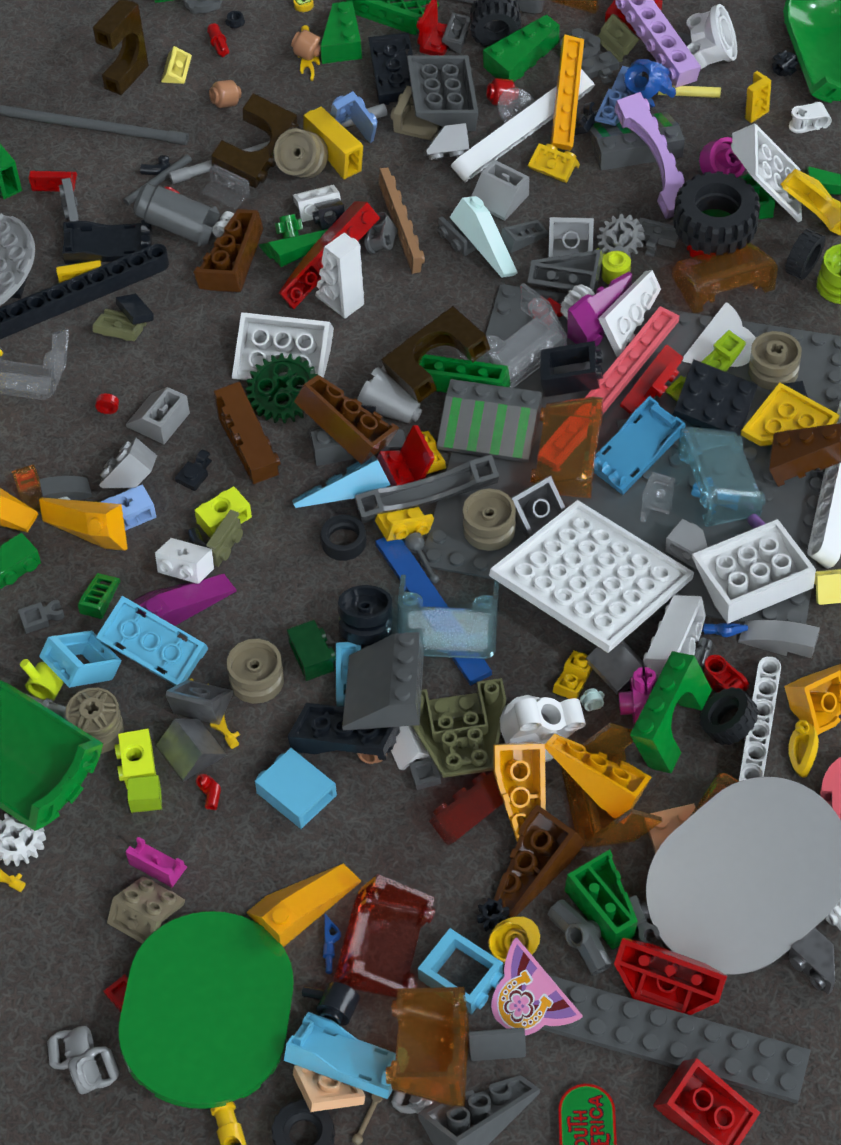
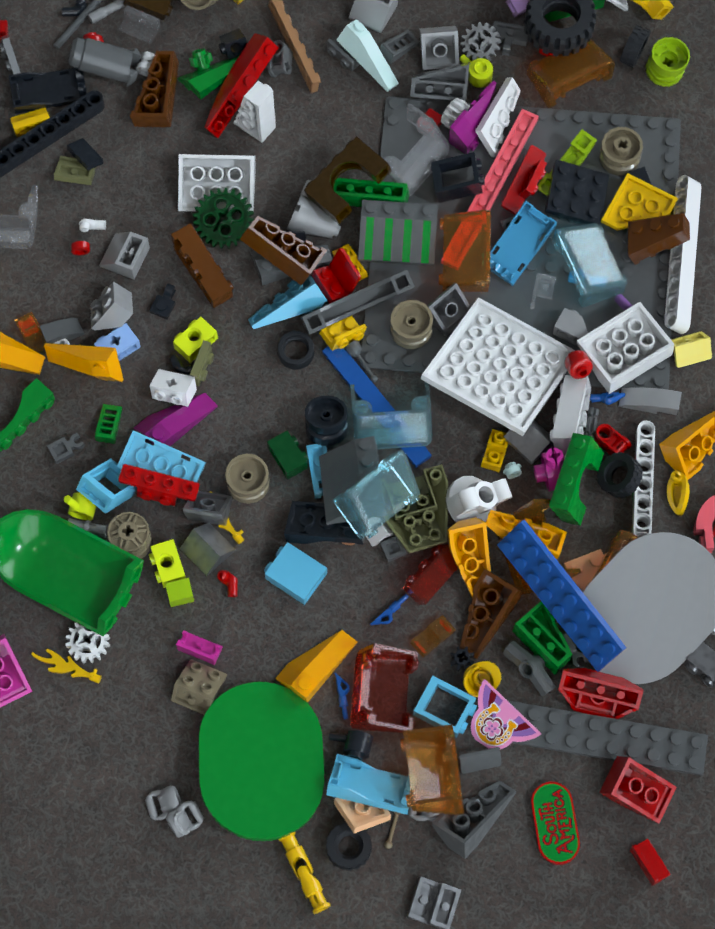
camera: 10 degrees left, 15 degrees up
(116, 992) = (191, 755): red tile -> none
(121, 380) = (86, 224): none -> white arm
(141, 666) = (158, 486): none -> red bracket
(306, 200) = (216, 28): white bracket -> none
(406, 849) = (389, 611): none -> blue hand
(412, 695) = (379, 495): none -> clear light blue windscreen
(463, 882) = (433, 636): none -> clear orange slope
(632, 845) = (561, 596): none -> blue plate
(690, 580) = (578, 364): none -> red head
(723, 321) = (575, 119): white sticker -> none

